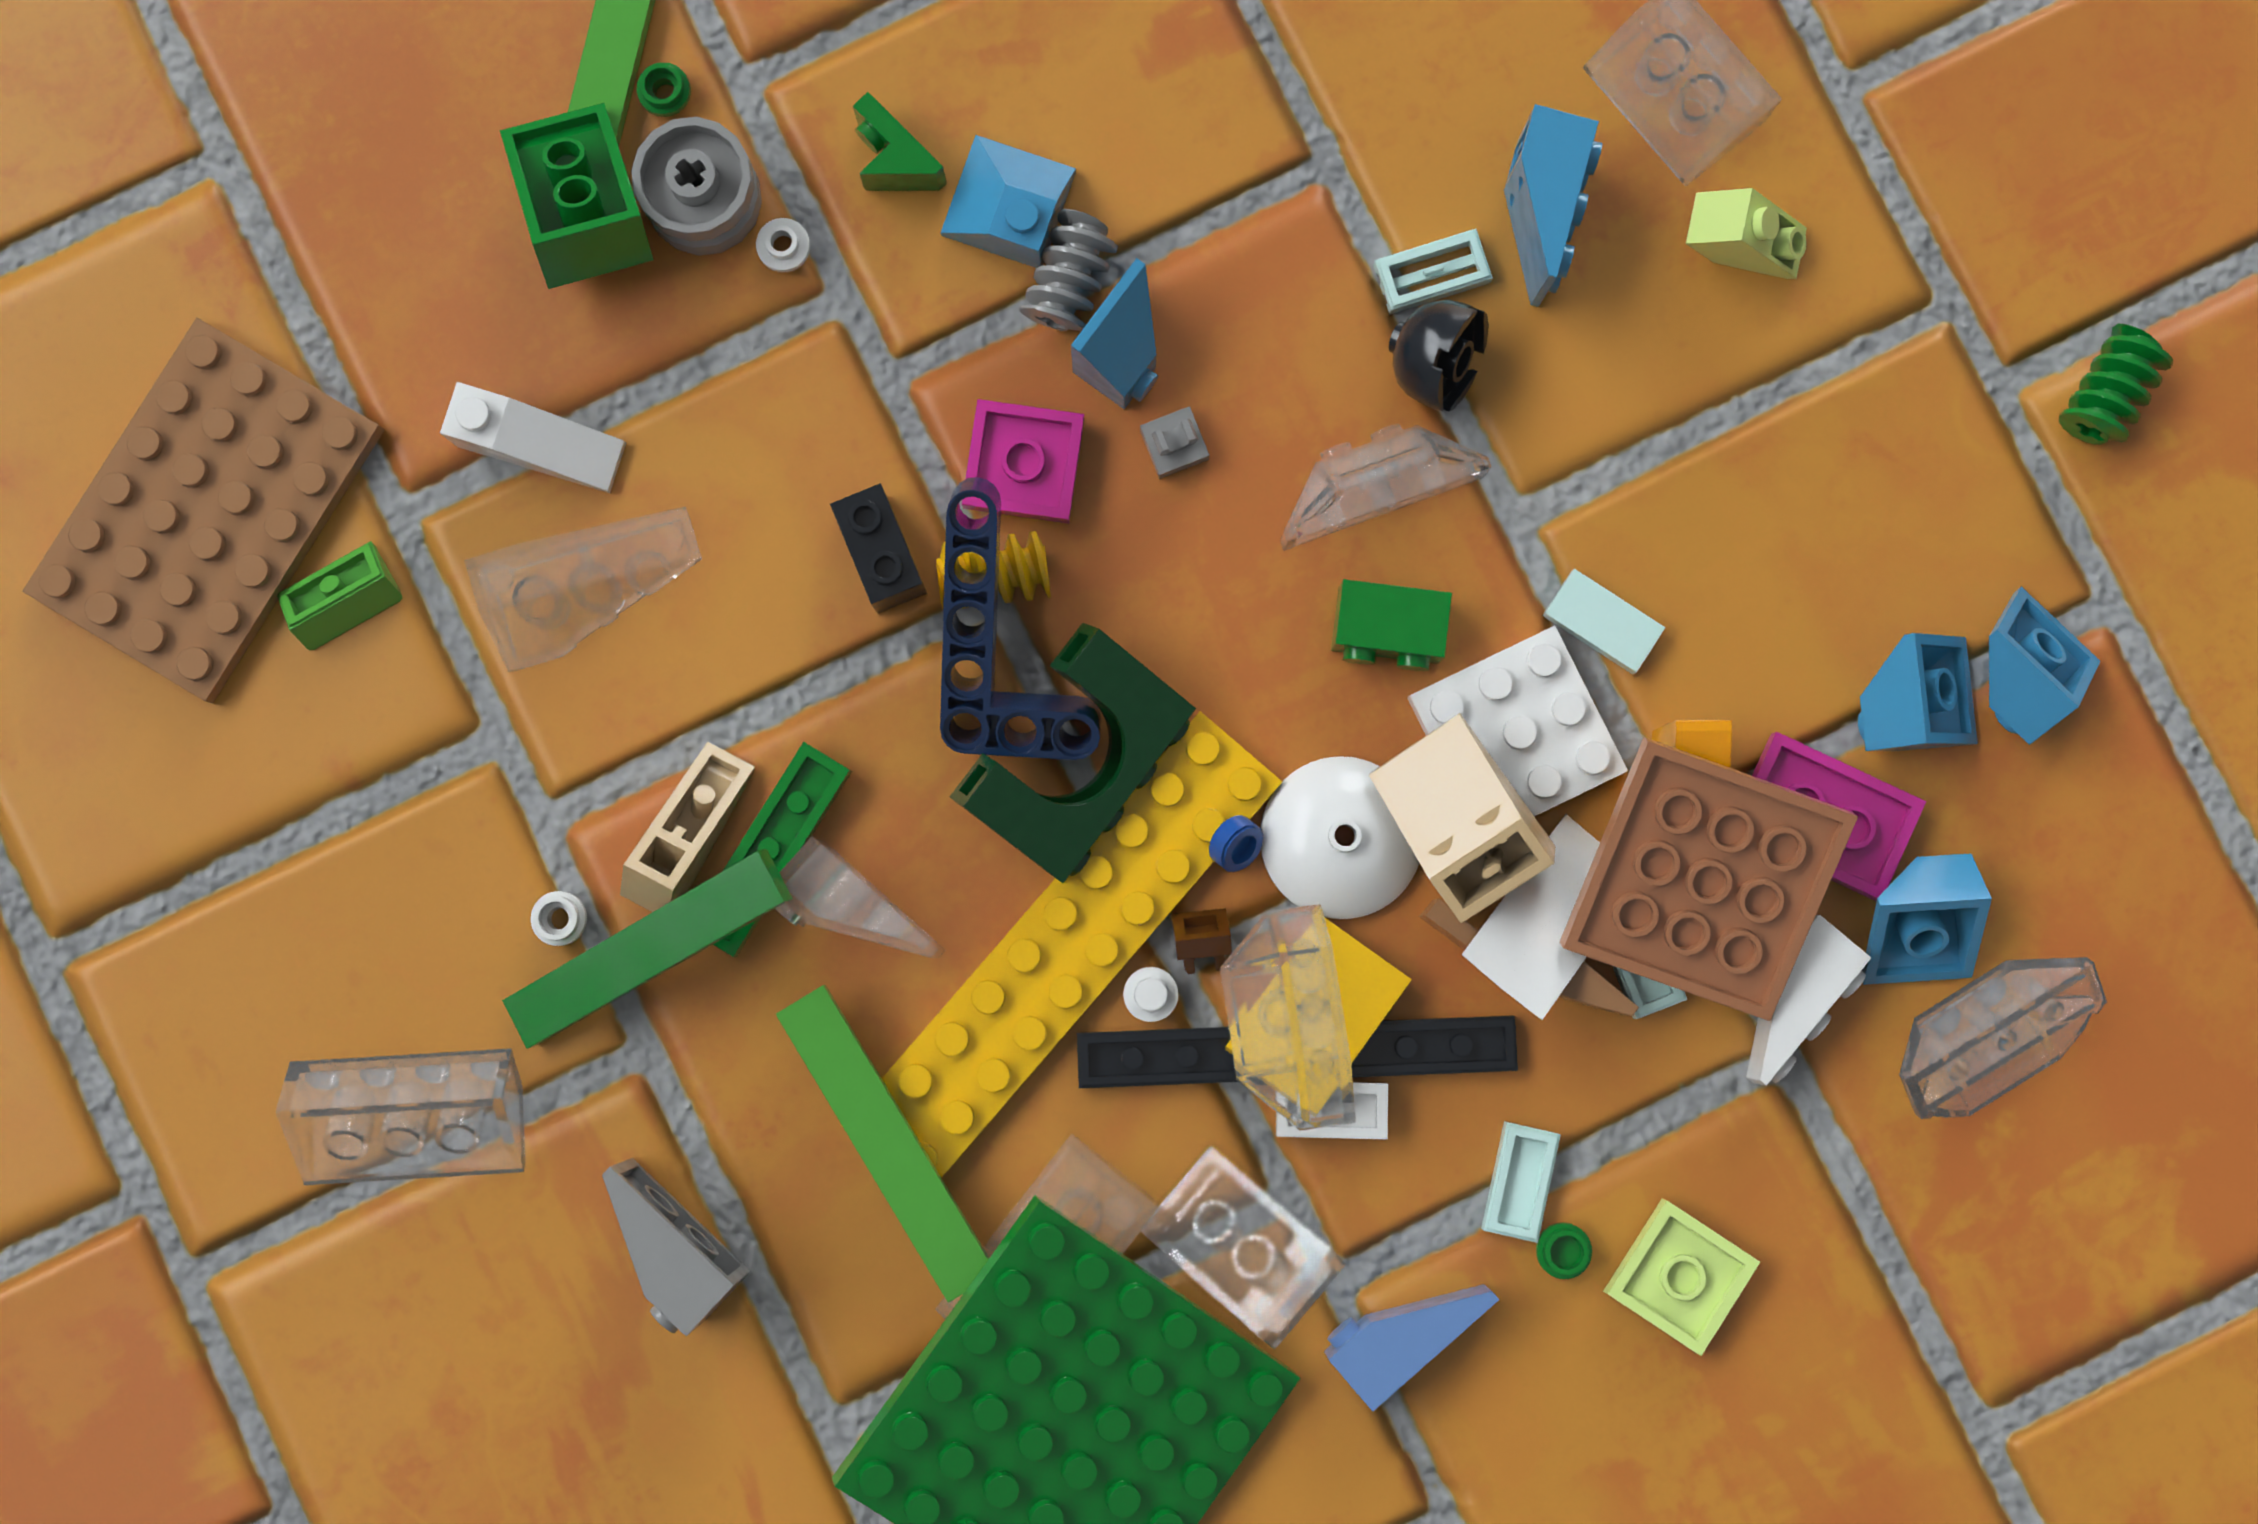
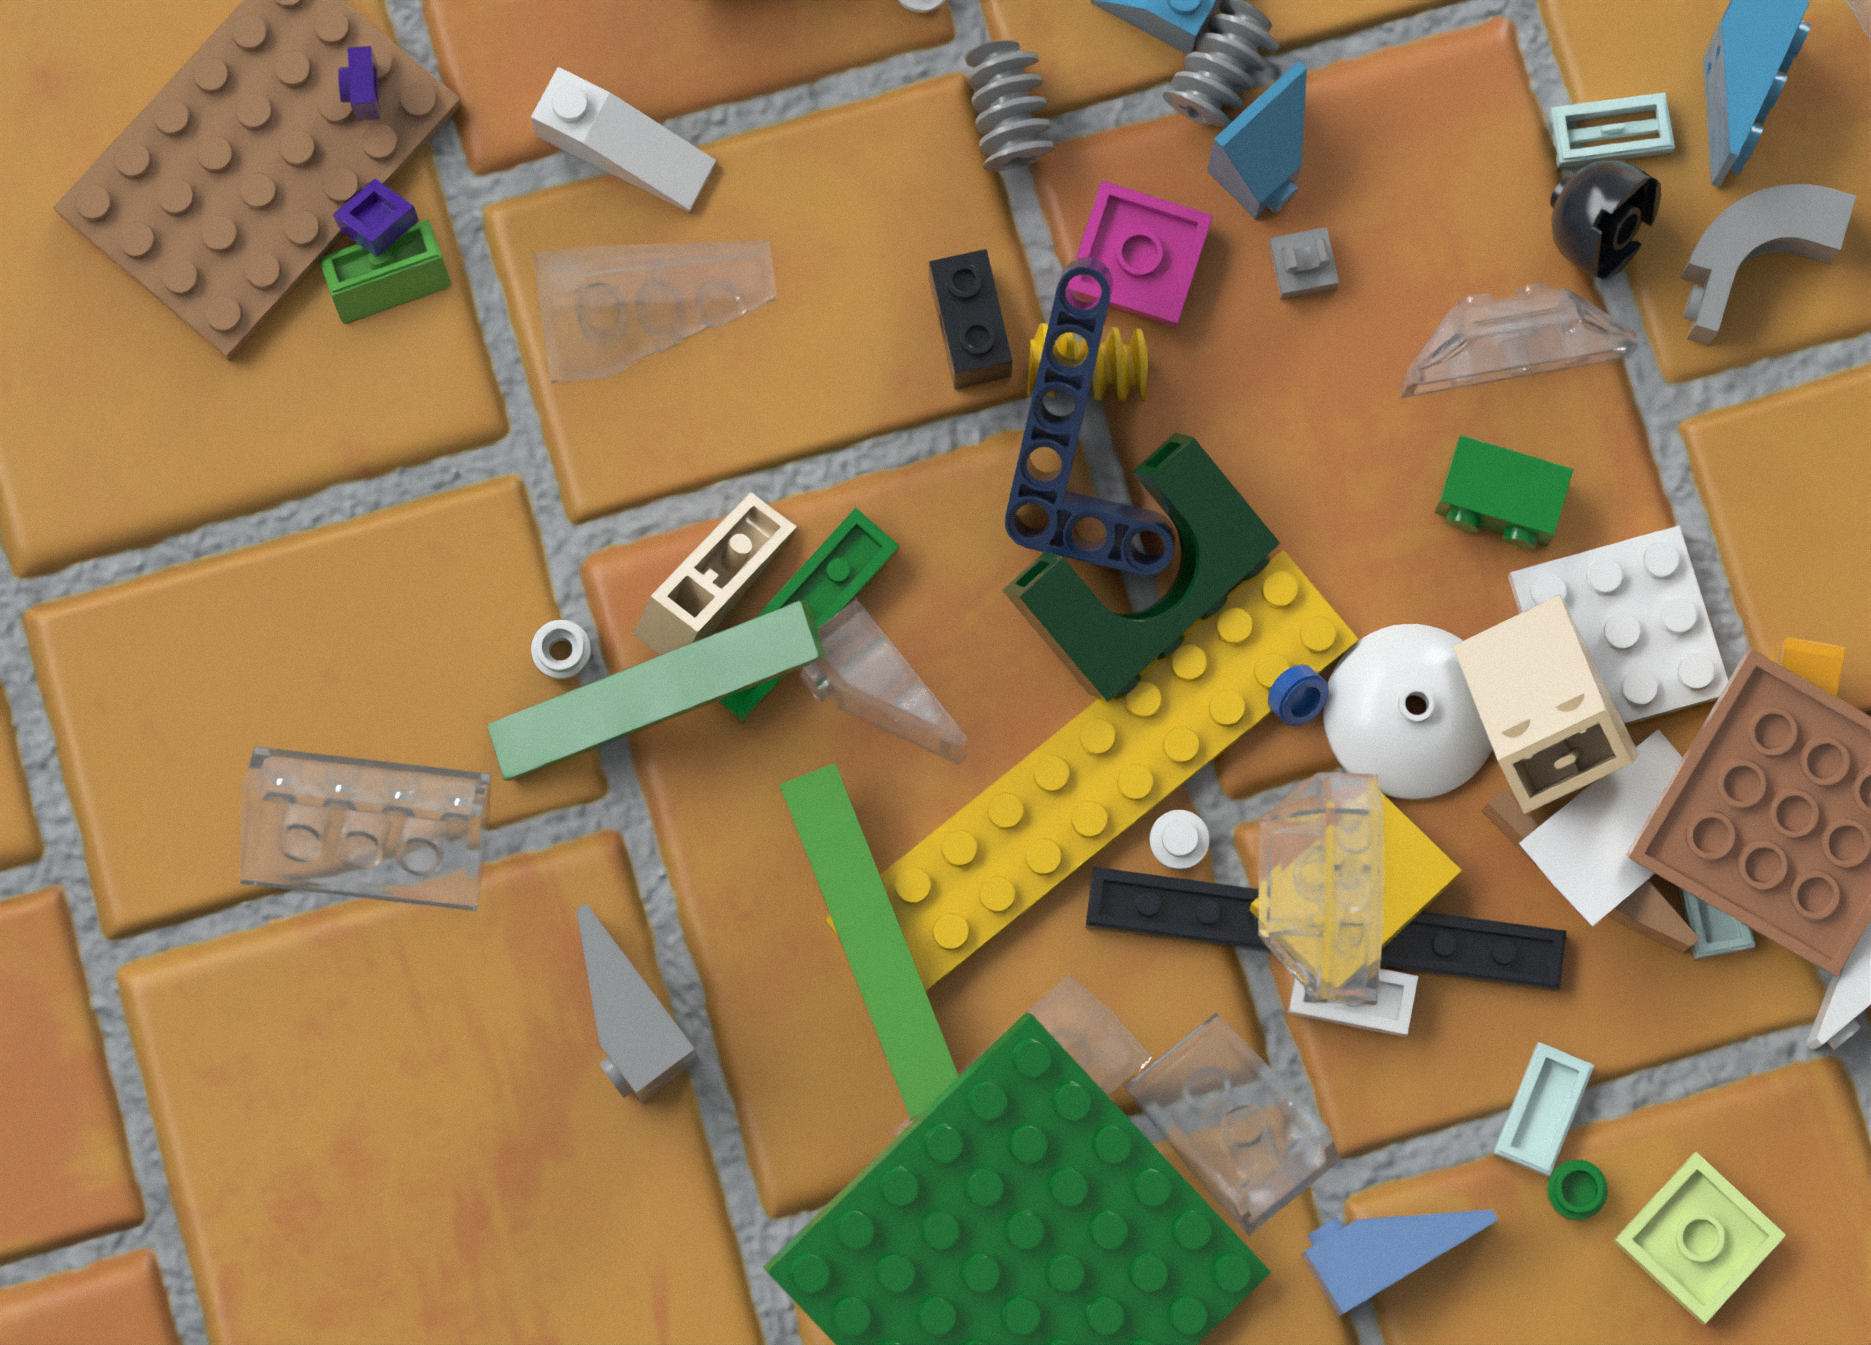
camera: 10 degrees right, 5 degrees down
(278, 428) = (360, 83): none -> dark purple plate
(318, 549) = (376, 217): none -> dark purple plate
(878, 344) = (1006, 105): none -> light grey piece
(1201, 936) = (1244, 785): reddish brown tile -> none
(1603, 621) = (1732, 531): light aqua tile -> none
(1607, 325) = (1776, 219): none -> light grey arch

